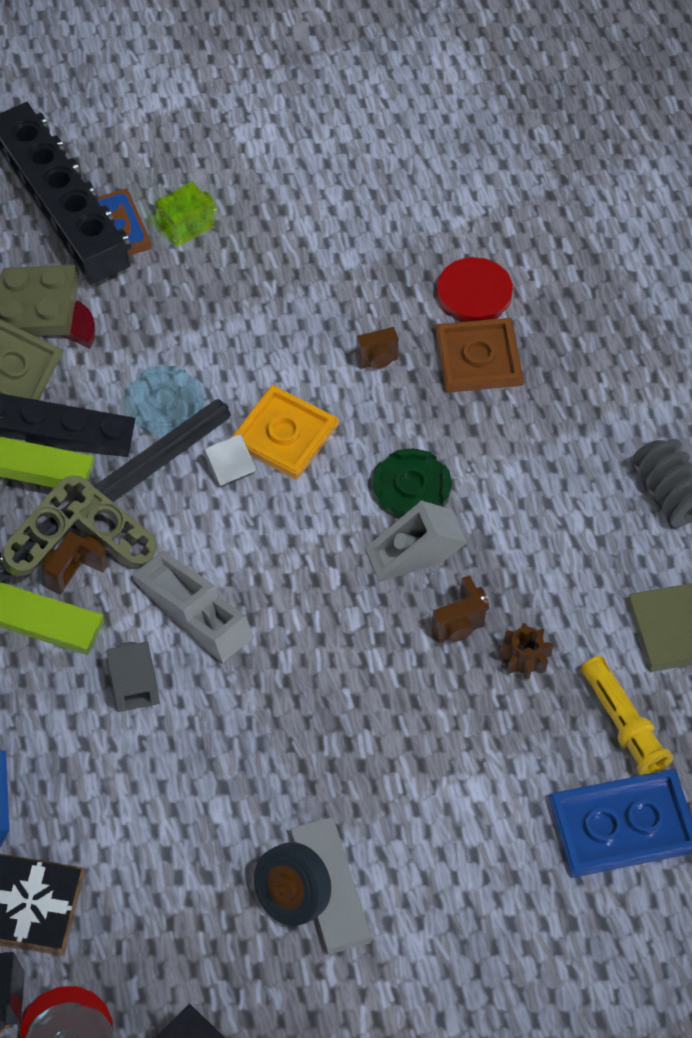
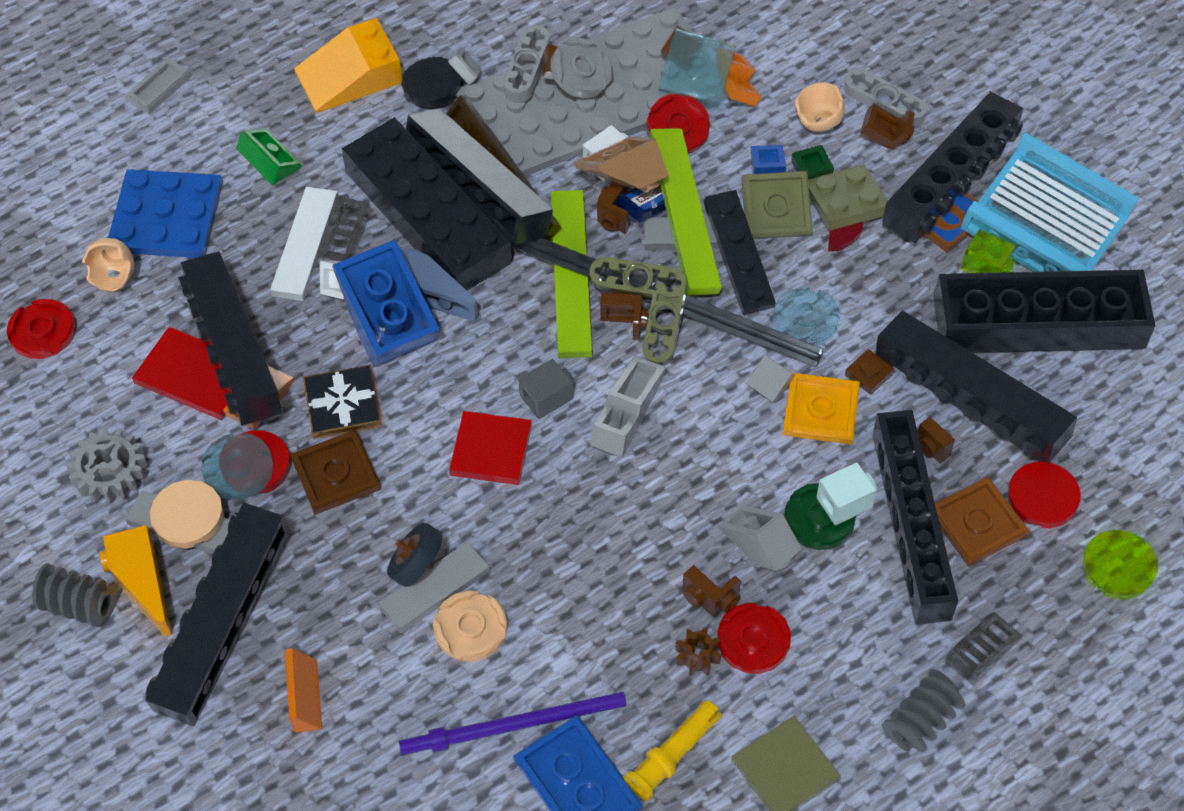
camera: 70 degrees right, 0 degrees up
(125, 944) = (335, 472): none -> reddish brown tile
(157, 140) = (1051, 209): none -> panel
(175, 764) = (490, 447): none -> red tile
(262, 371) = (870, 371): none -> reddish brown plate
(276, 198) = (1045, 310): none -> black brick
(333, 288) = (976, 387): none -> black brick
(394, 880) = (476, 635): none -> light nougat tile
(410, 443) = (846, 493): none -> light aqua brick
(459, 398) = (914, 518): none -> black brick
(513, 604) = (744, 641): none -> red tile
(524, 940) = (439, 739): none -> dark purple bar
(576, 265) = (1120, 564): none -> clear neon green tile
(621, 433) = (966, 666): none -> clear smoke slope

